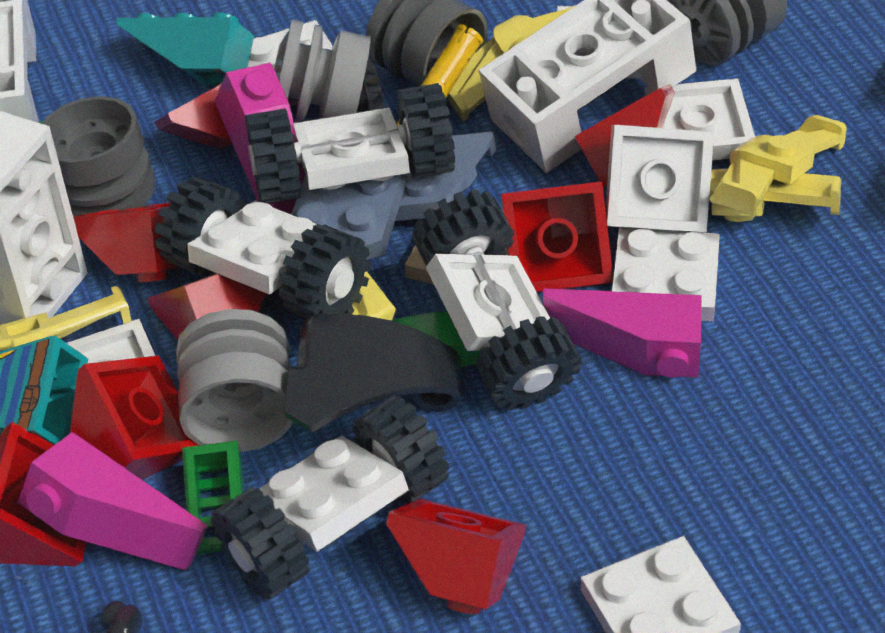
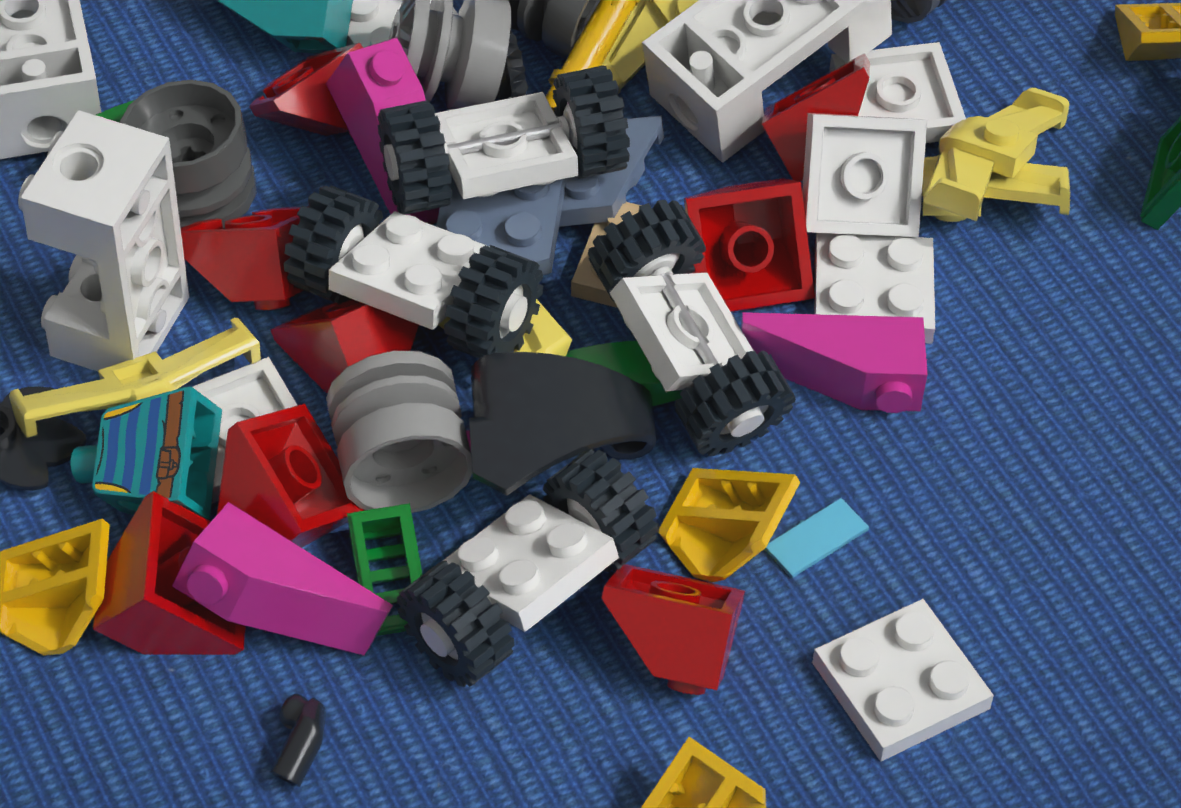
camera: 10 degrees left, 5 degrees up
(512, 461) = (725, 518): none -> yellow slope
(595, 482) = (816, 538): none -> medium azure window

